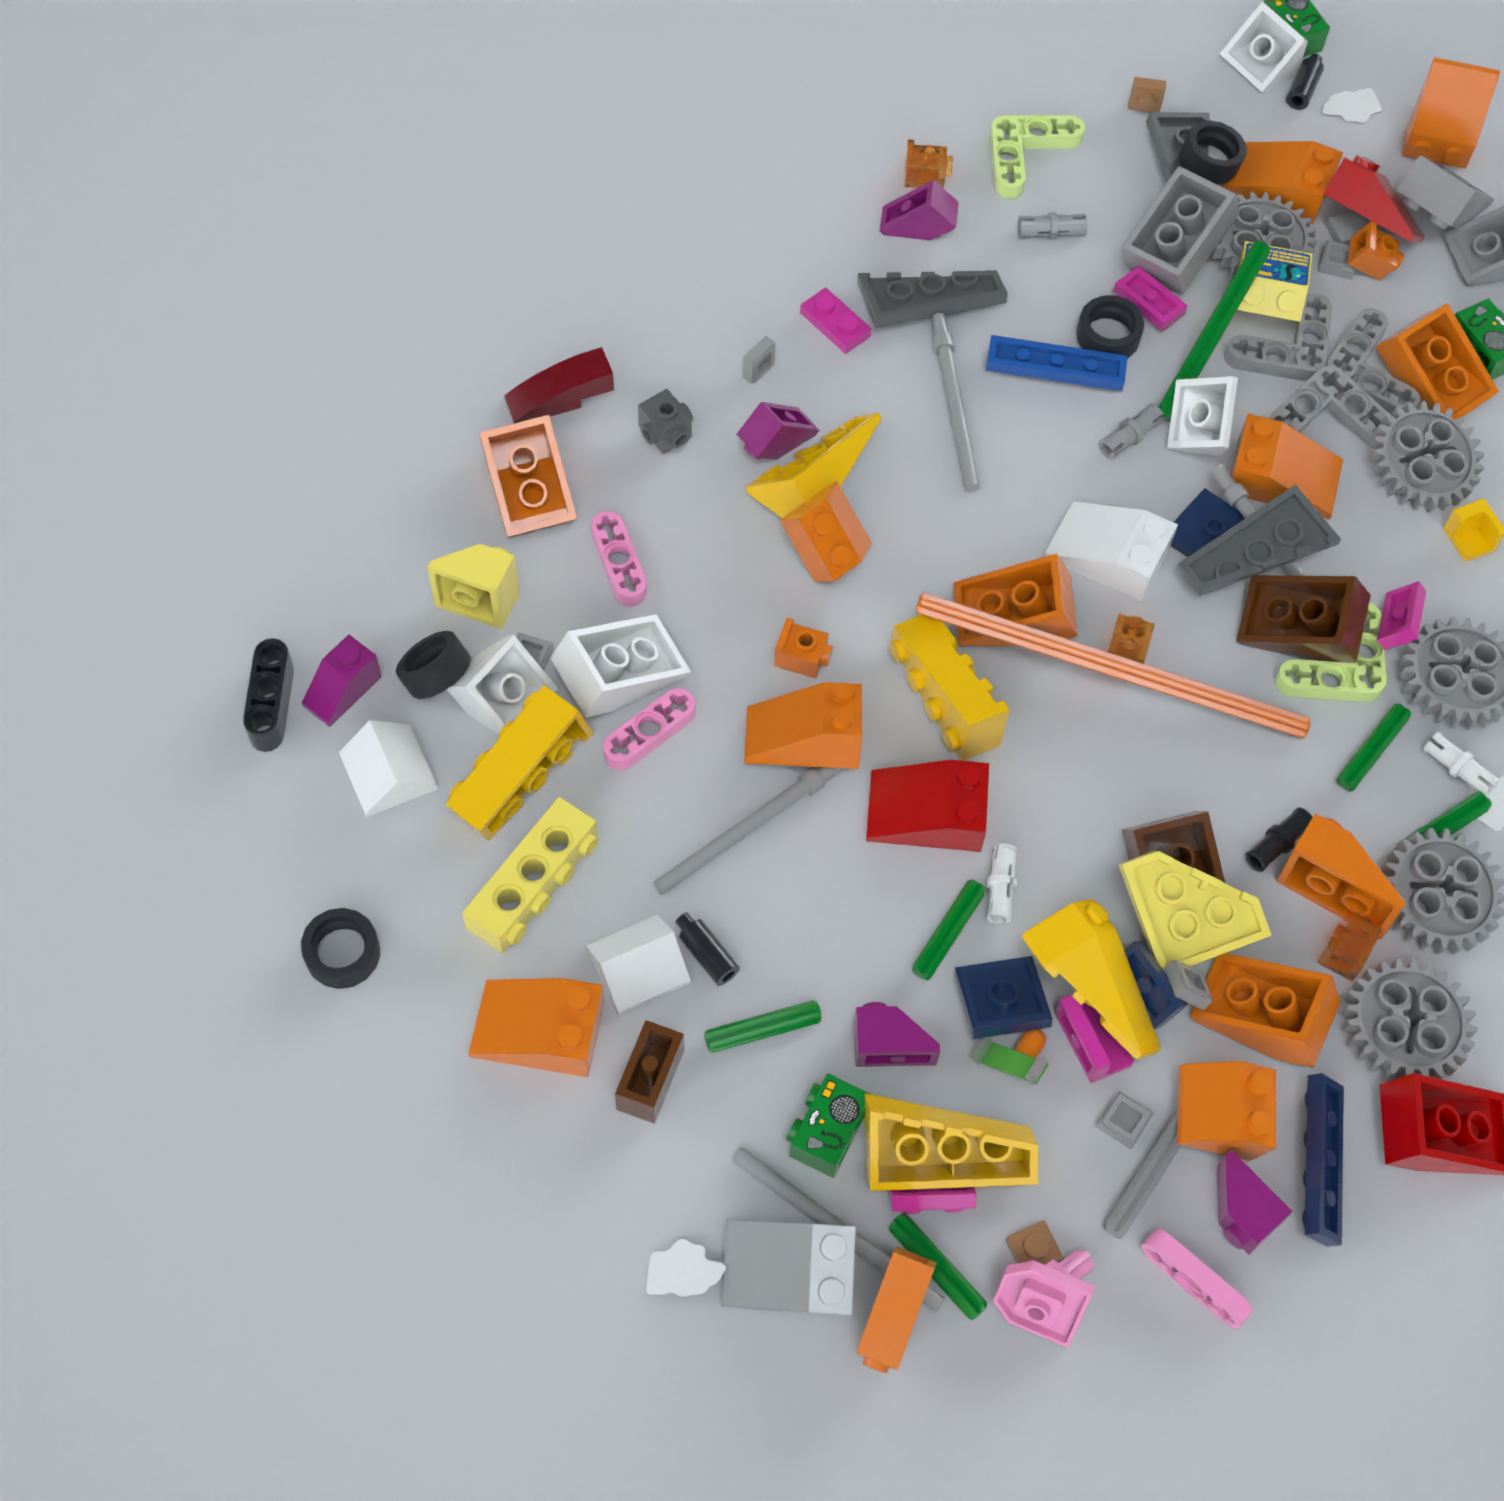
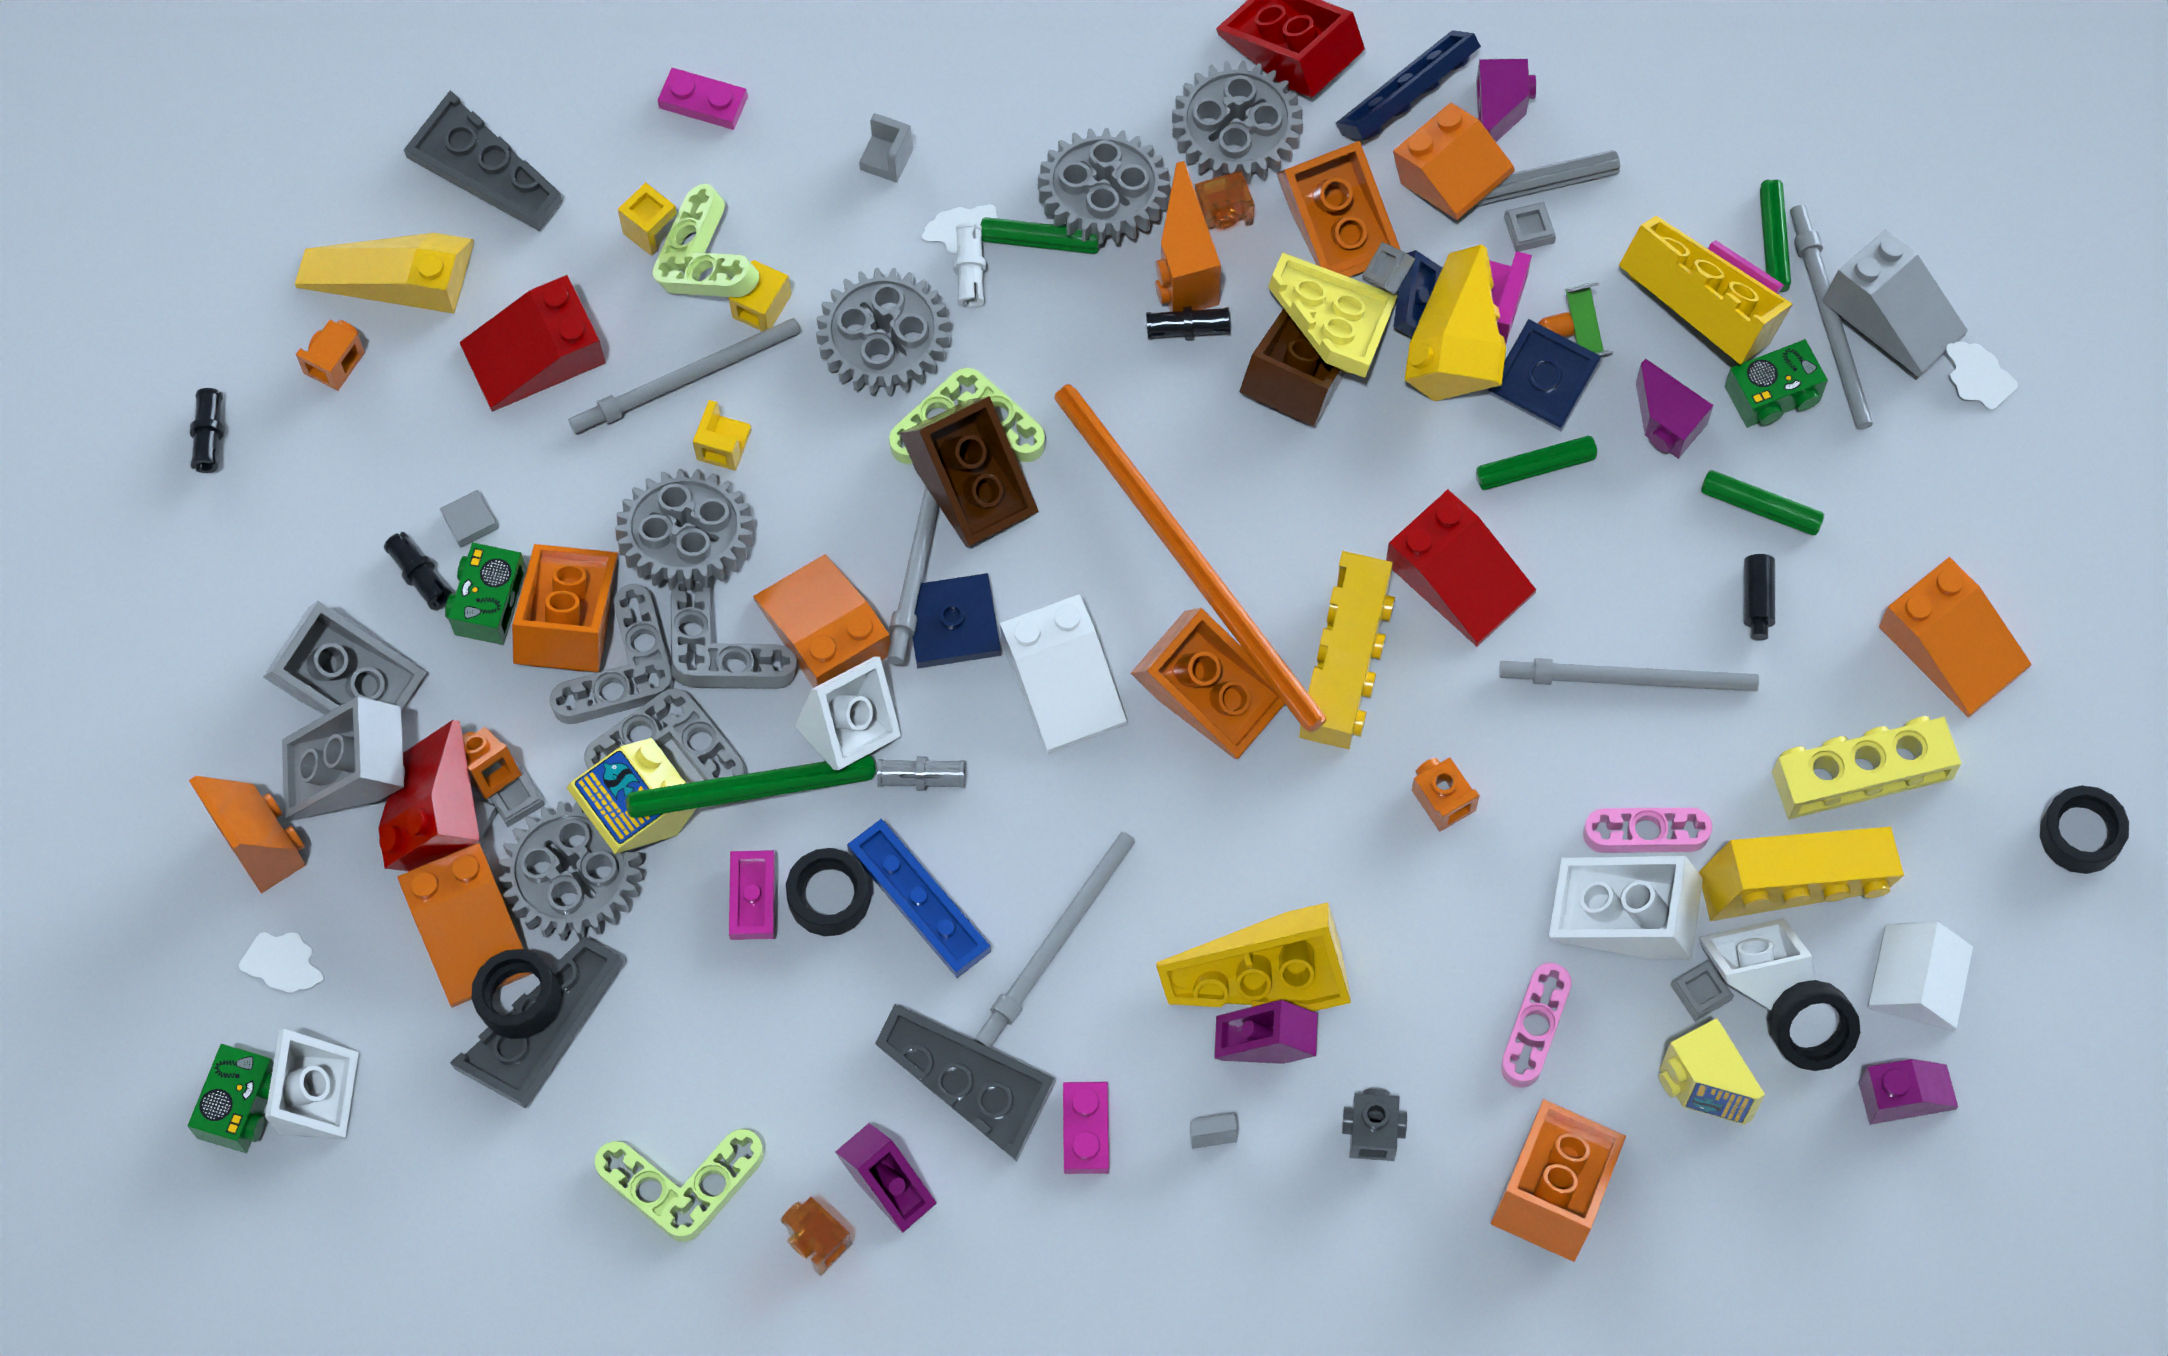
camera: 135 degrees left, 5 degrees up
(273, 709) = (2000, 1111): black beam -> none
(561, 386) = (1445, 1258): dark red slope -> none
(639, 963) = (1826, 634): white slope -> none
(649, 1071) = (1896, 520): reddish brown brick -> none
(807, 728) = (1514, 709): orange slope -> none
(827, 534) = (1326, 868): orange slope -> none
(895, 1310) = (1848, 205): orange window -> none
(1002, 884) = (1457, 463): white pin -> none
(1034, 1244) = (1688, 194): medium nougat plate -> none
(1047, 1297) = (1709, 146): bright pink piece -> none
(1052, 225) = (757, 1060): light grey pin -> none
(1131, 638) = (1147, 557): clear orange brick -> none
(1146, 94) = (494, 1132): medium nougat plate -> none
(1181, 229) = (662, 917): light grey brick -> none
(1197, 1278) = (1587, 84): bright pink beam -> none
(1265, 540) = (924, 552): dark grey wing -> none
(1305, 82) = (306, 1018): black cylinder -> none
(1373, 747) = (1023, 335): green axle -> none
(1401, 615) = (882, 407): dark pink plate -> none

